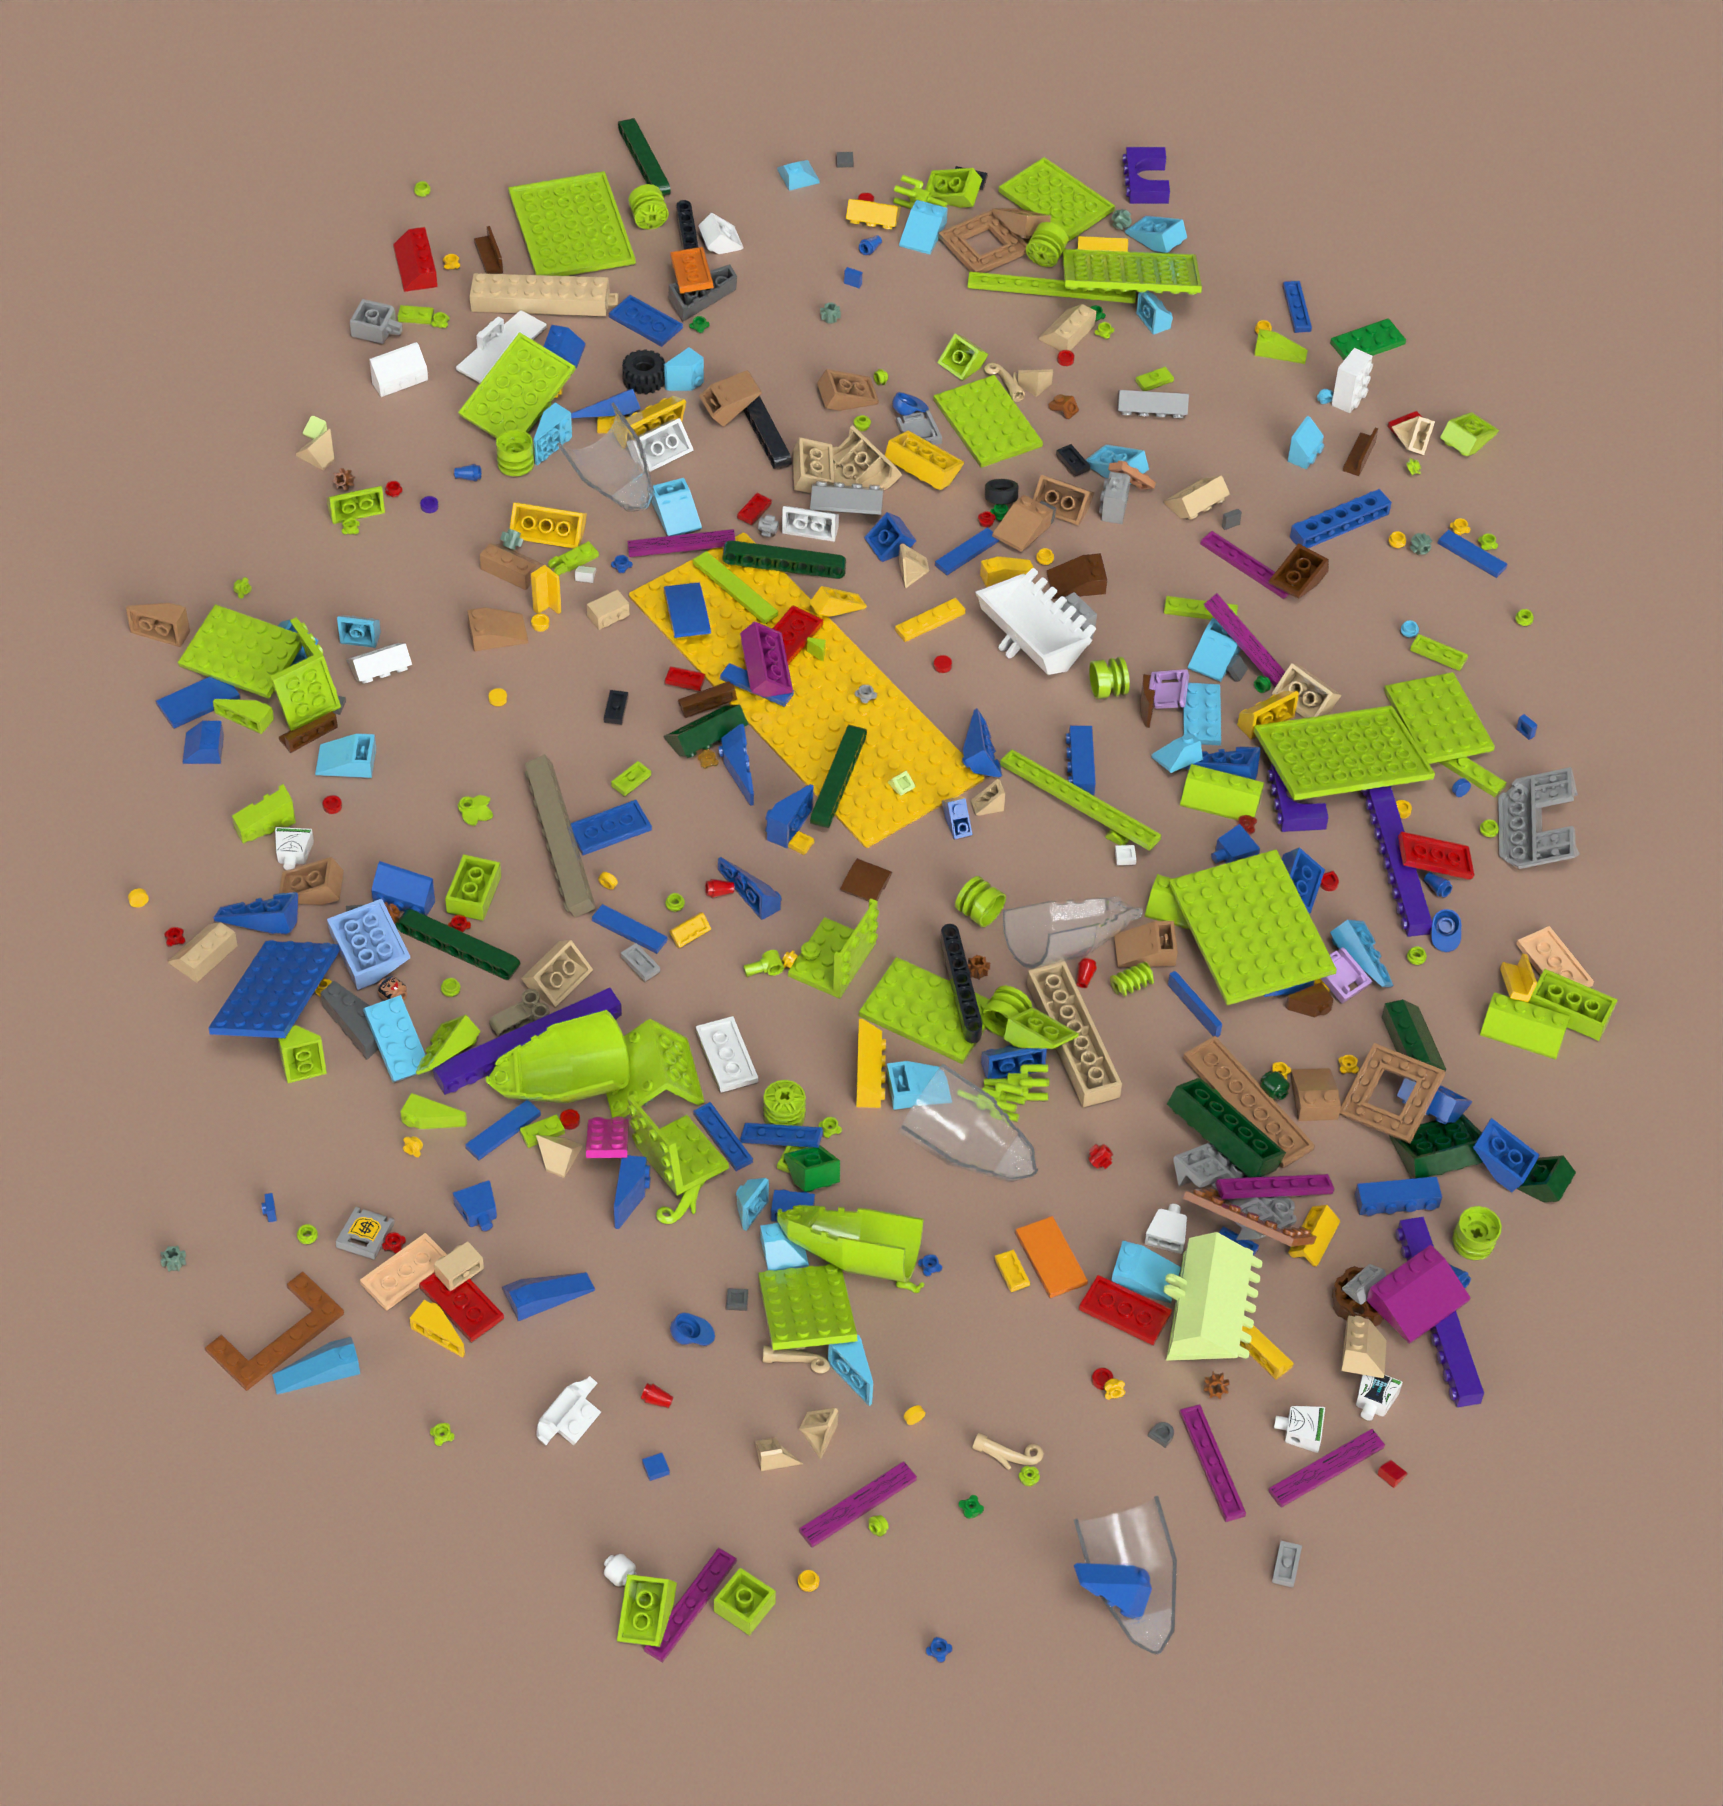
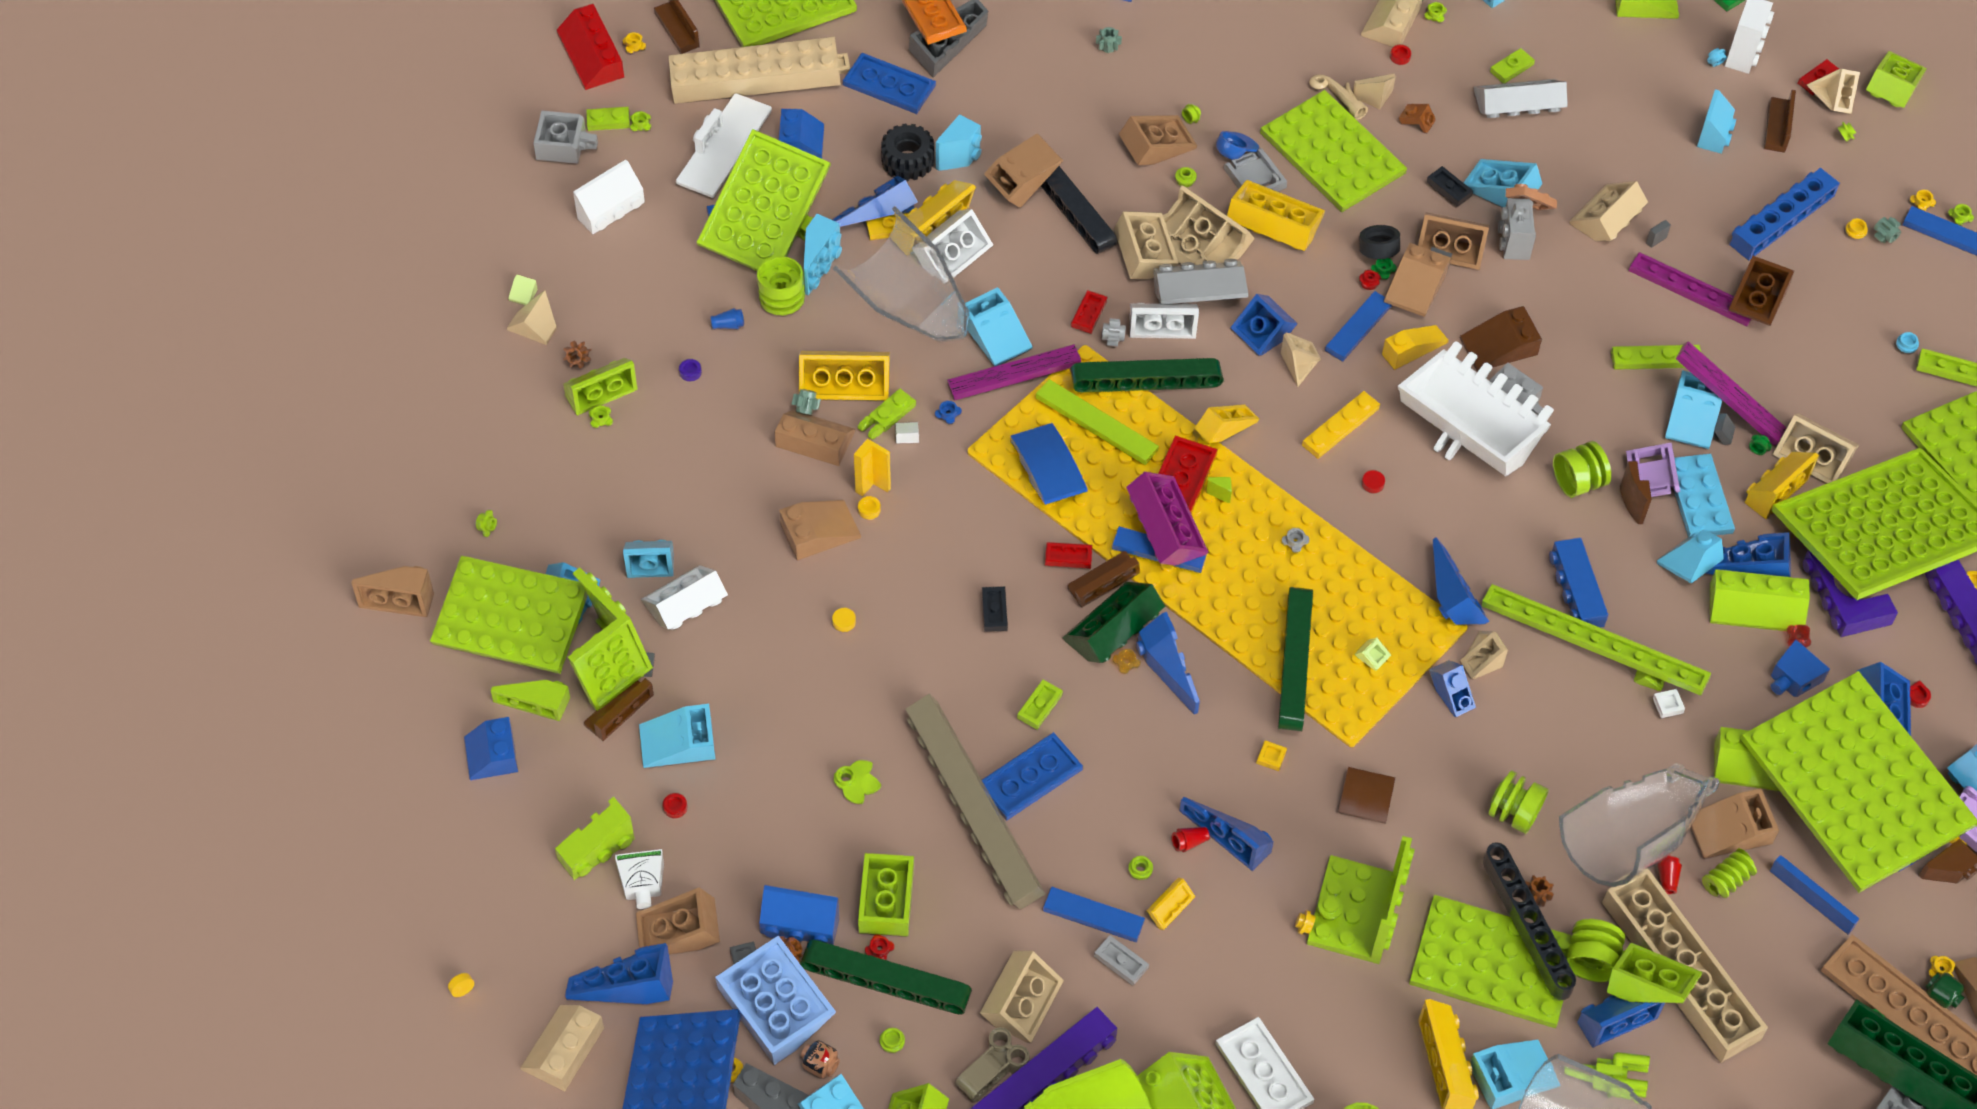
camera: 10 degrees left, 5 degrees up
(174, 932) = (516, 1027): red plate -> none
(195, 700) = (465, 690): blue tile -> none
(393, 489) = (641, 352): red plate -> none
(607, 880) = (1049, 852): yellow tile -> none
(608, 609) = (949, 477): tan brick -> none
(699, 324) = (955, 78): green plate -> none
(768, 963) = (1281, 932): lime pin -> none
(789, 816) = (1247, 733): blue slope -> none
(962, 357) = (1281, 73): lime slope -> none
(1024, 1080) = (1643, 1043): lime plant -> none
(1045, 556) = (1453, 318): yellow plate -> none

